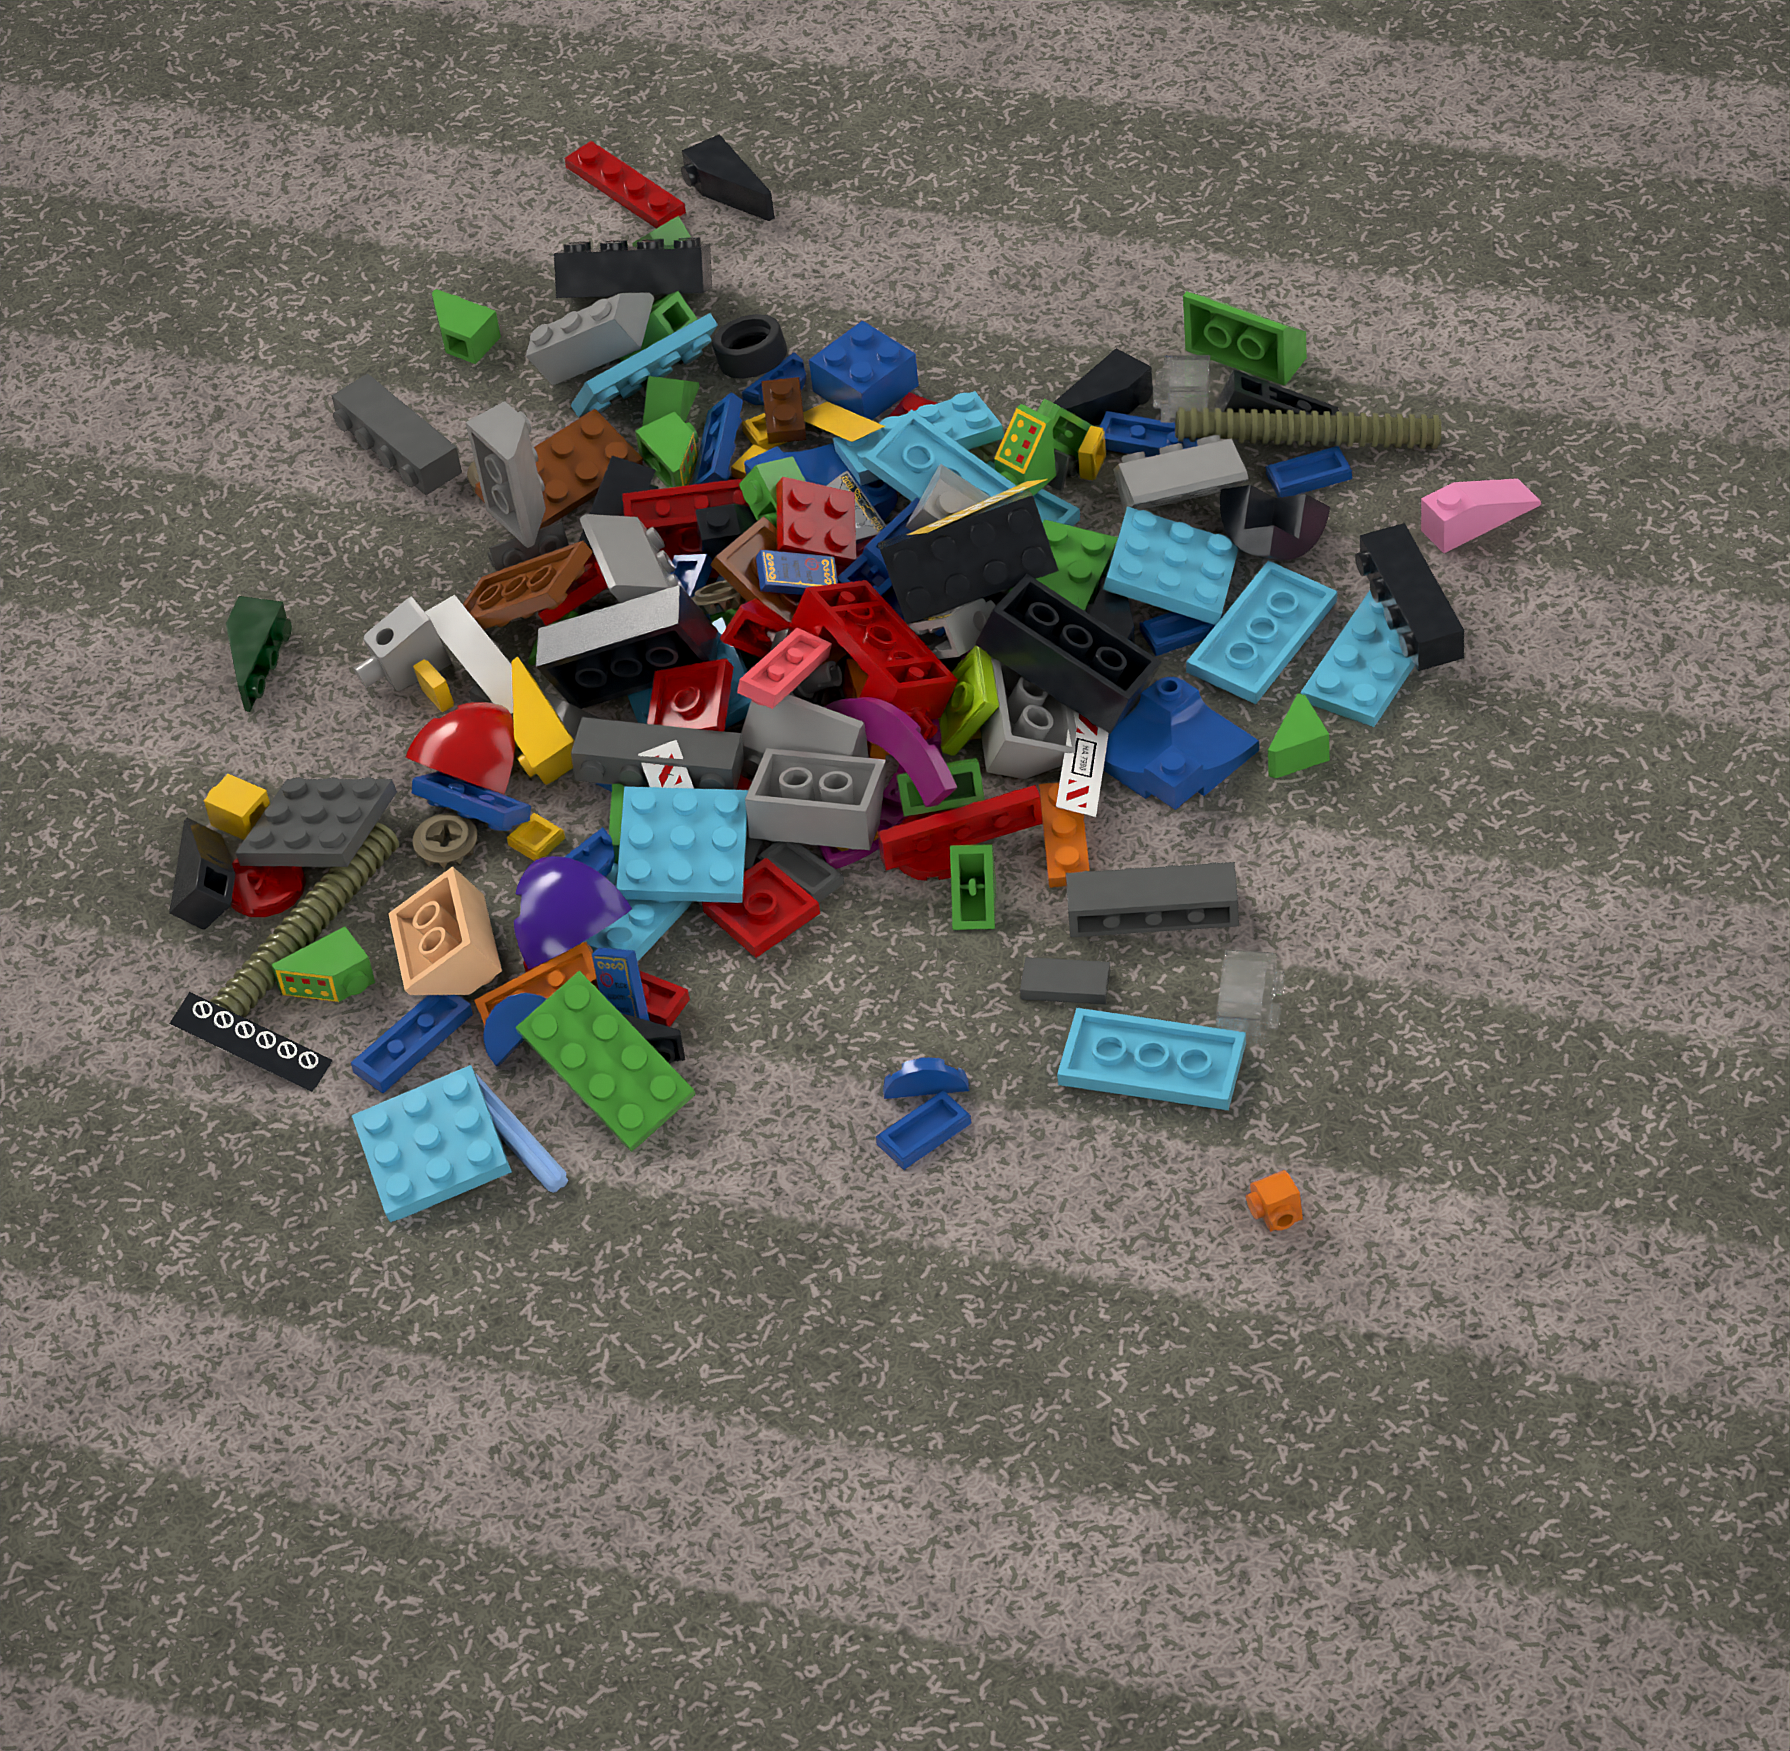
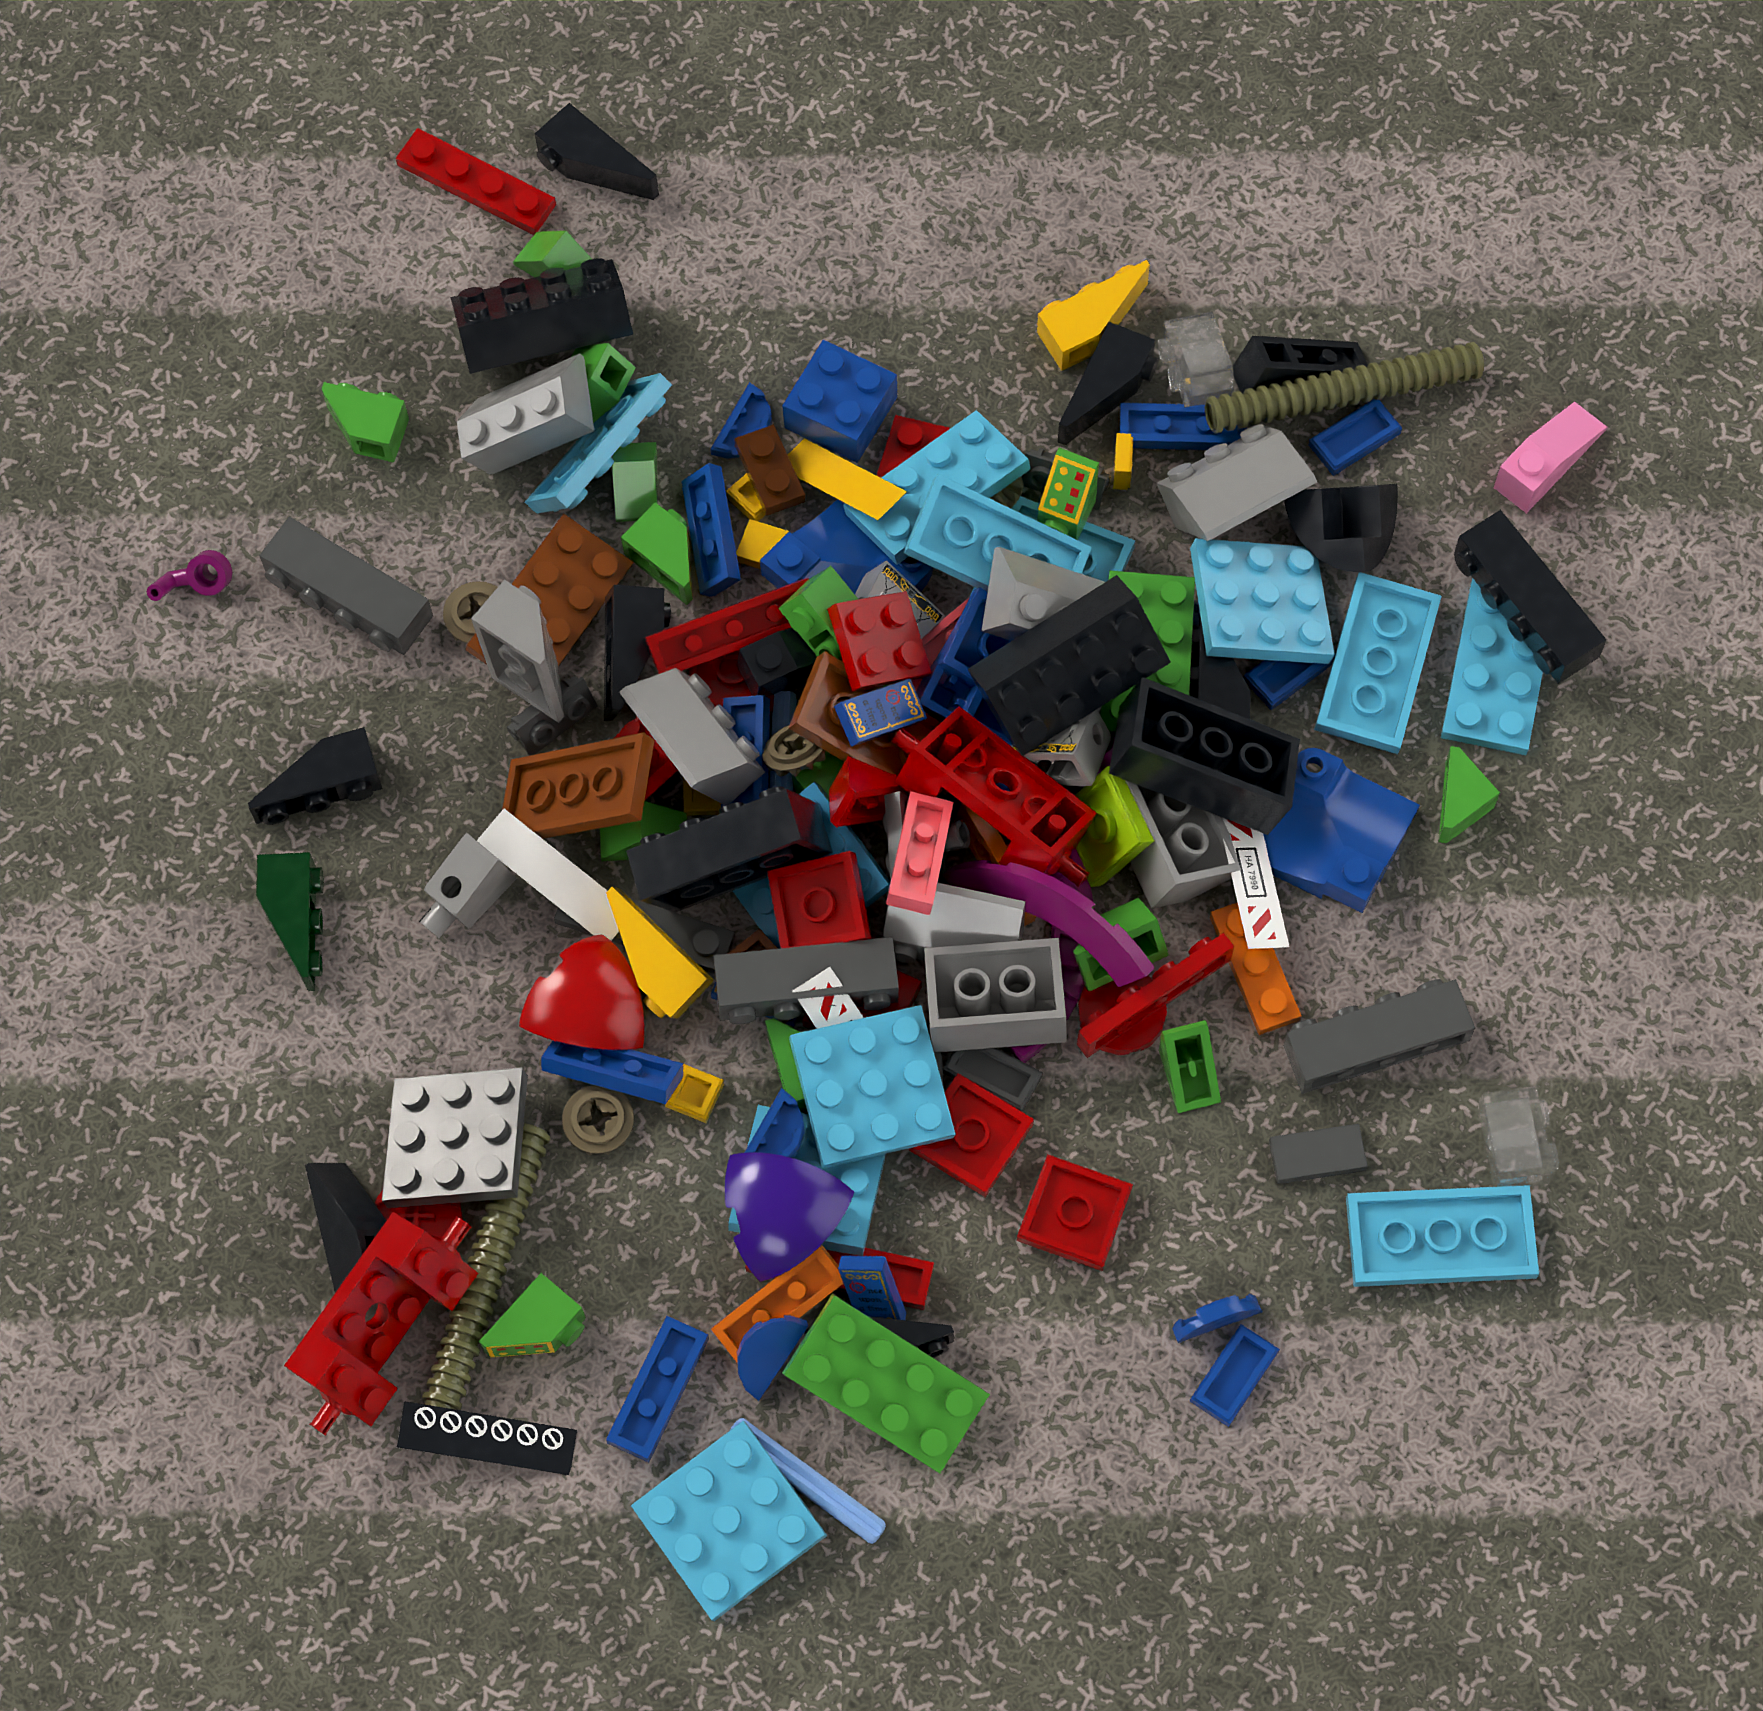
camera: 20 degrees left, 20 degrees up
(231, 901) = (401, 1275): none -> red brick
(235, 806) = (355, 1131): yellow brick -> none
(278, 409) = (196, 576): none -> magenta plate
(319, 559) = (327, 773): none -> black slope
(433, 685) = (514, 921): yellow tile -> none
(445, 938) = (653, 1262): light nougat slope -> none
(751, 361) = (716, 409): black tyre -> none
(828, 980) = (1074, 1212): none -> red plate
(976, 507) = (1068, 610): yellow sticker -> none
(1067, 428) = (1081, 437): bright green slope -> none
(1086, 347) = (1076, 325): none -> yellow slope
(1242, 339) = (1236, 276): bright green slope -> none
(1275, 1201) = (1624, 1385): orange plate -> none

